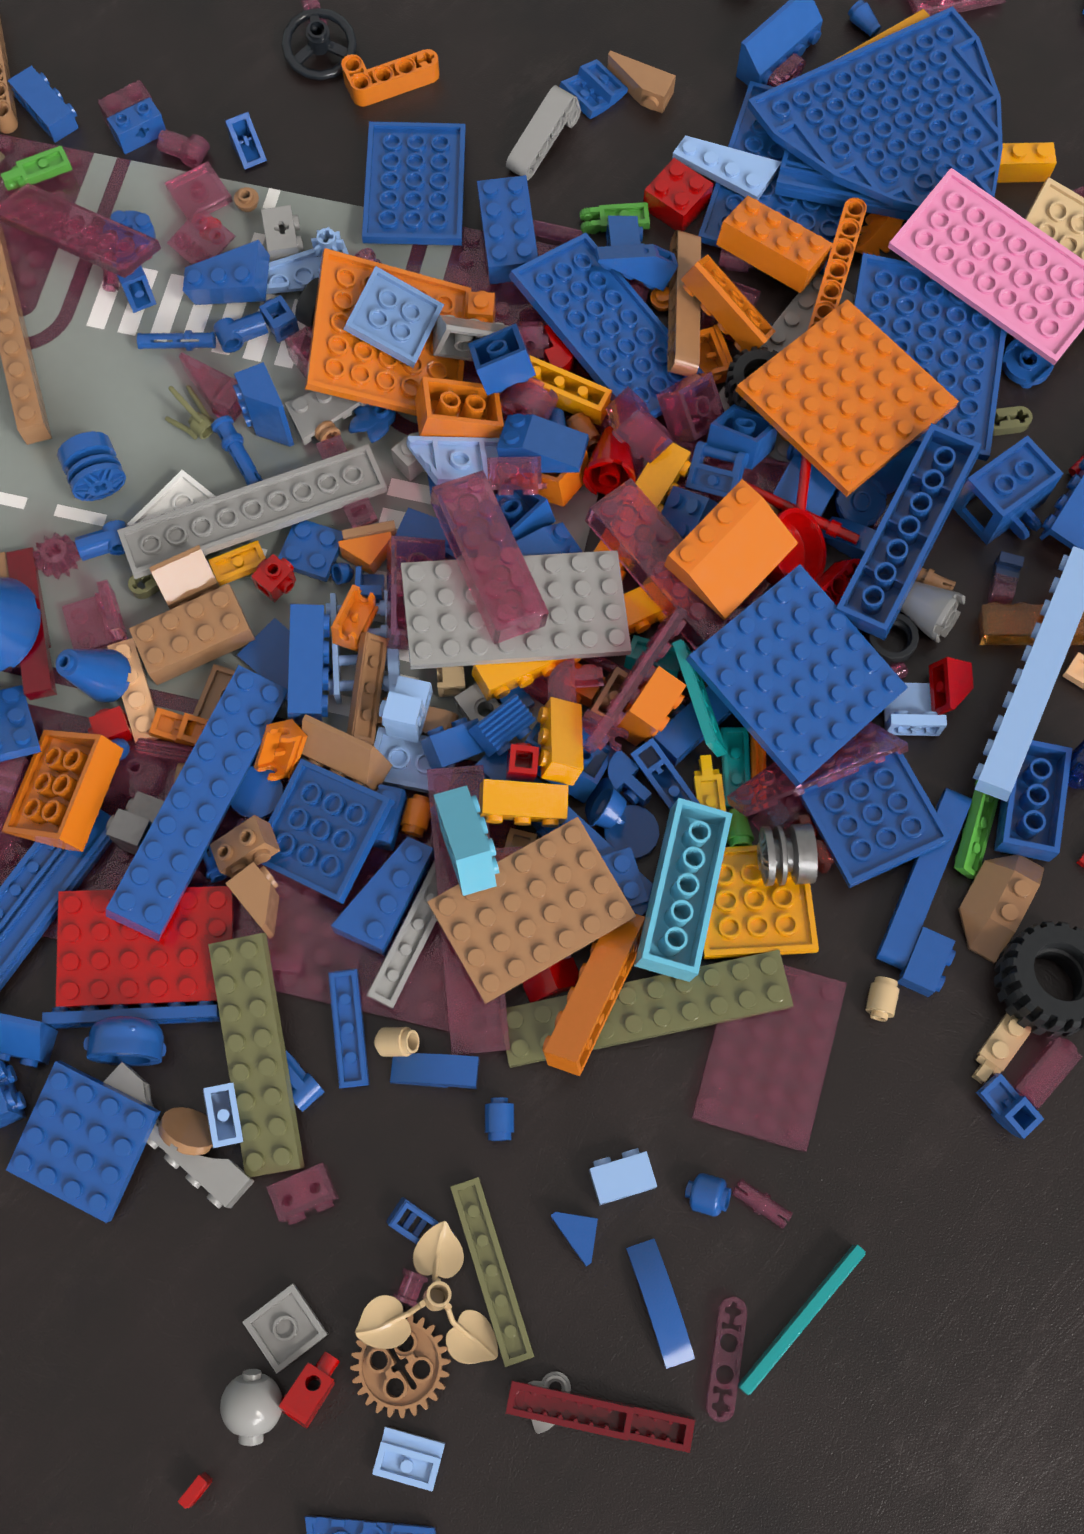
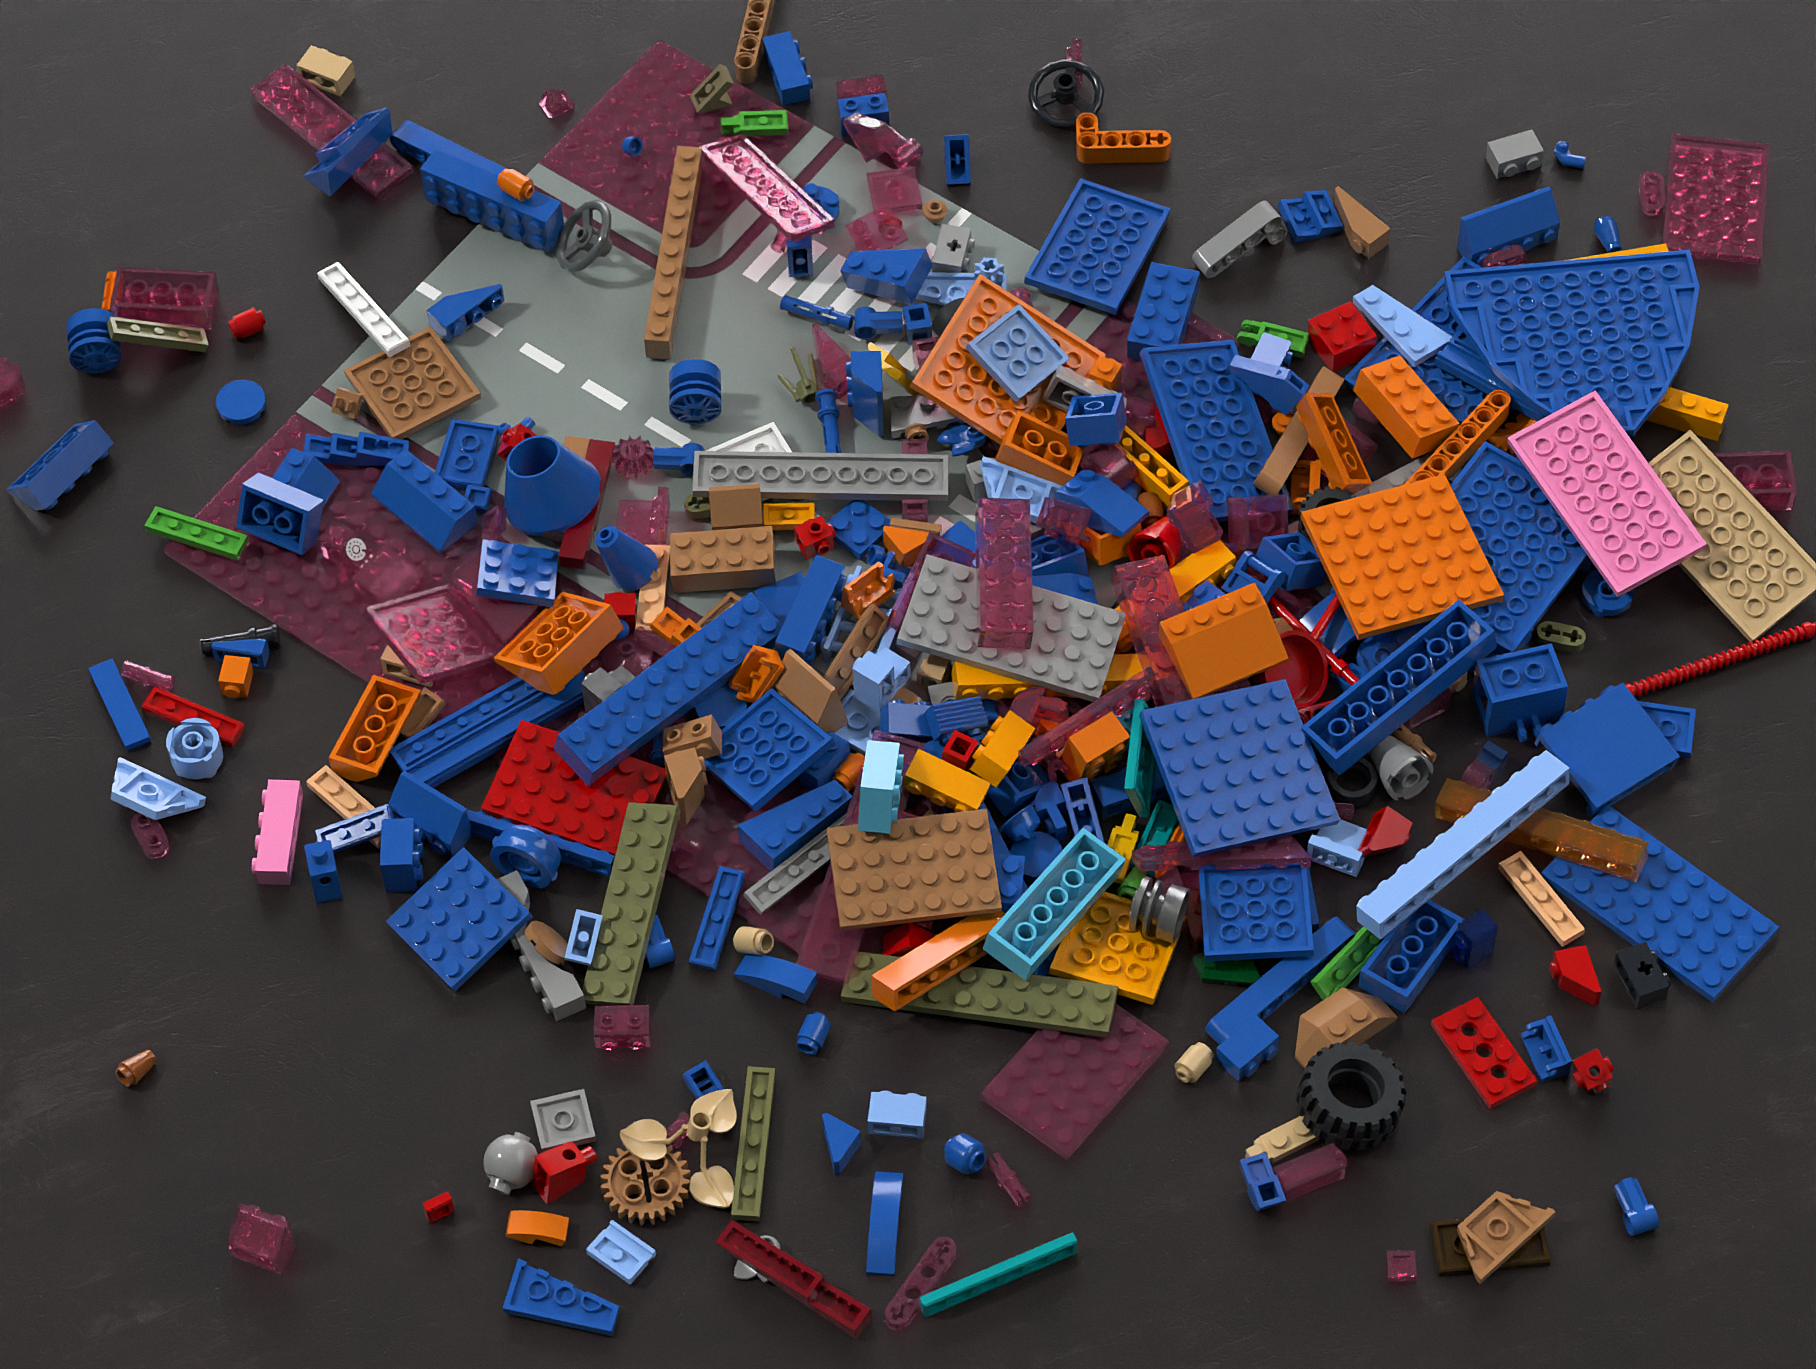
camera: 25 degrees right, 15 degrees down
(153, 144) = (870, 135): none -> clear pink slope
(279, 374) = (894, 369): none -> yellow slope
(309, 1468) = (533, 1225): none -> orange slope
(870, 888) = (1225, 972): none -> dark green wing

